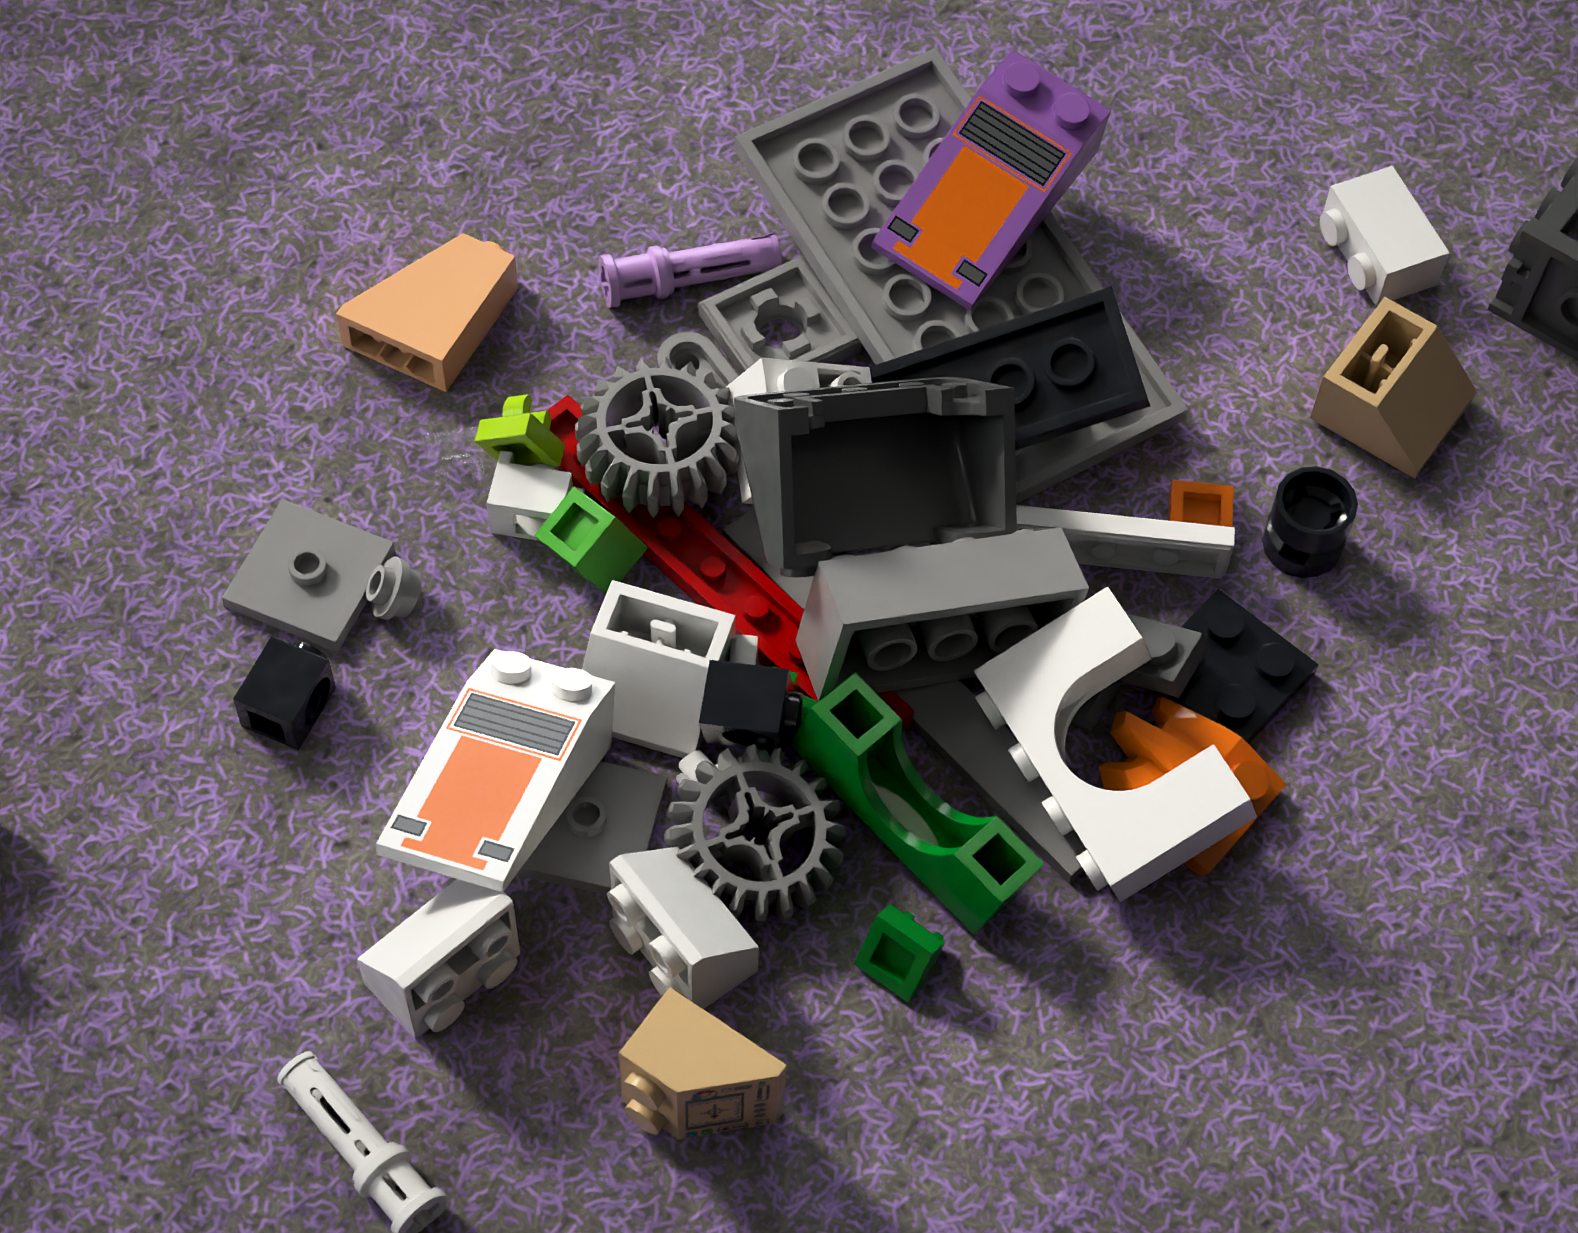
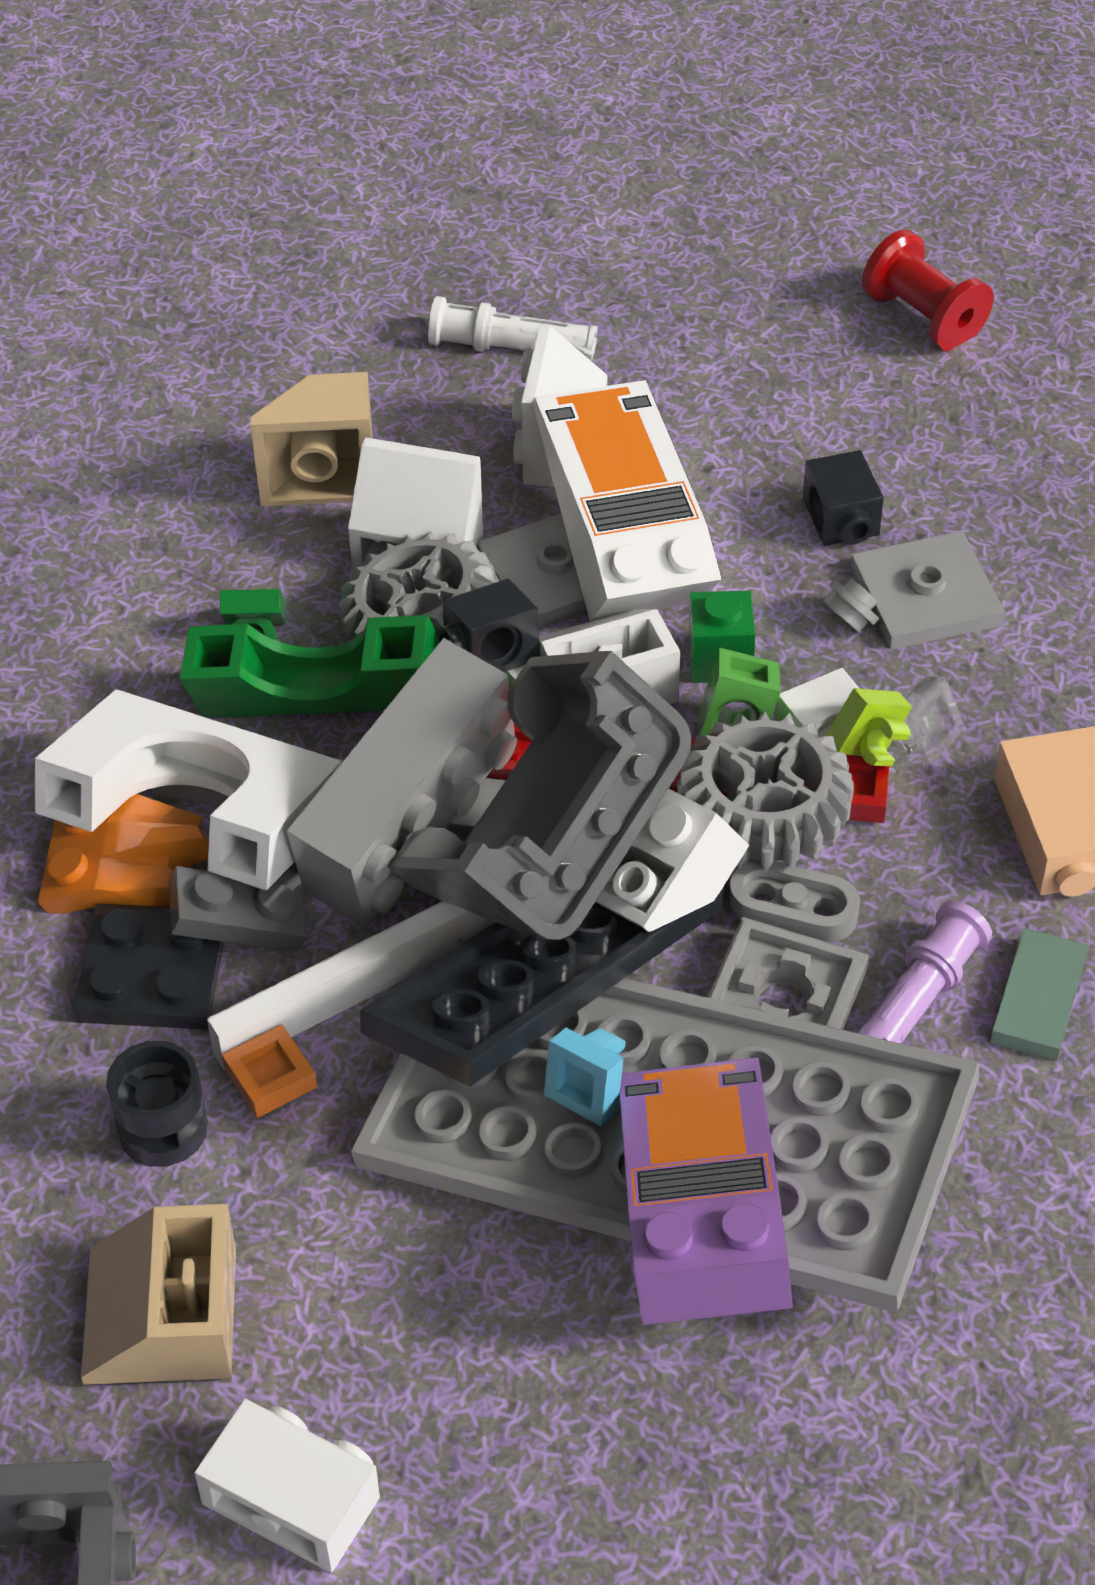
camera: 145 degrees right, 10 degrees down
(536, 618) = (718, 622): none -> green brick
(603, 218) = (1039, 994): none -> sand green tile
(993, 299) = (585, 1073): none -> medium azure tile

